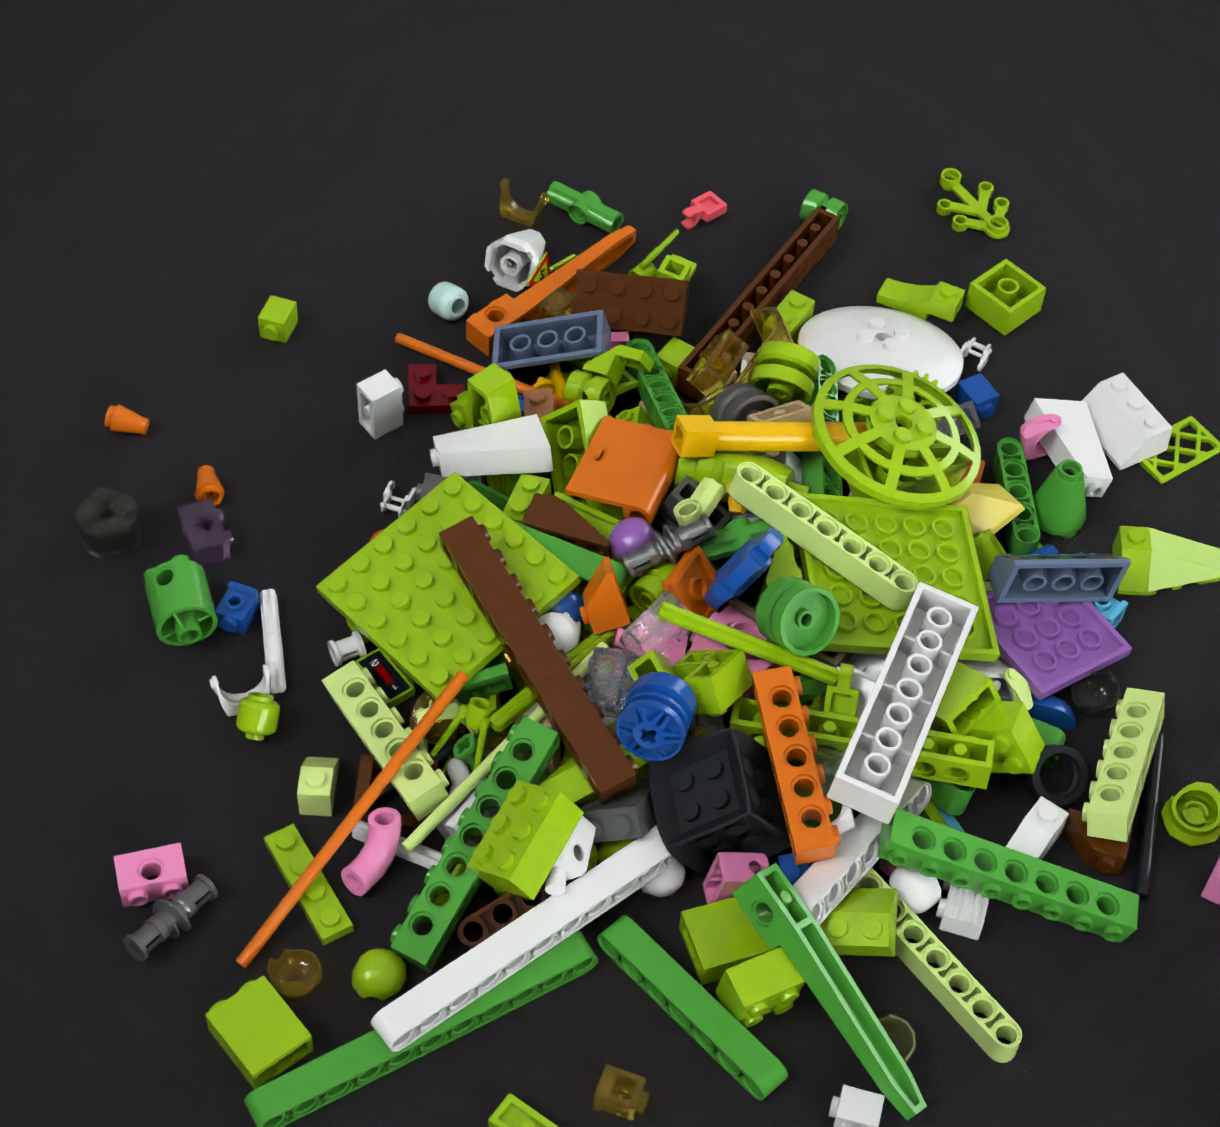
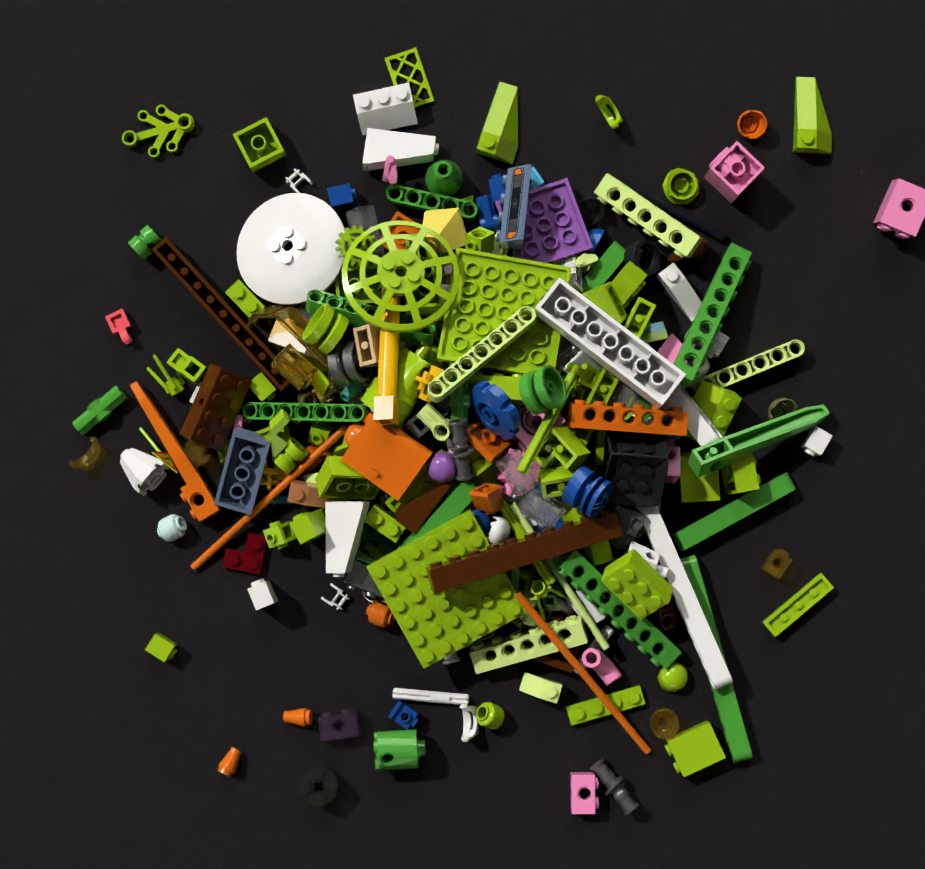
camera: 70 degrees left, 35 degrees up
(921, 300) = (243, 202): lime slope -> none

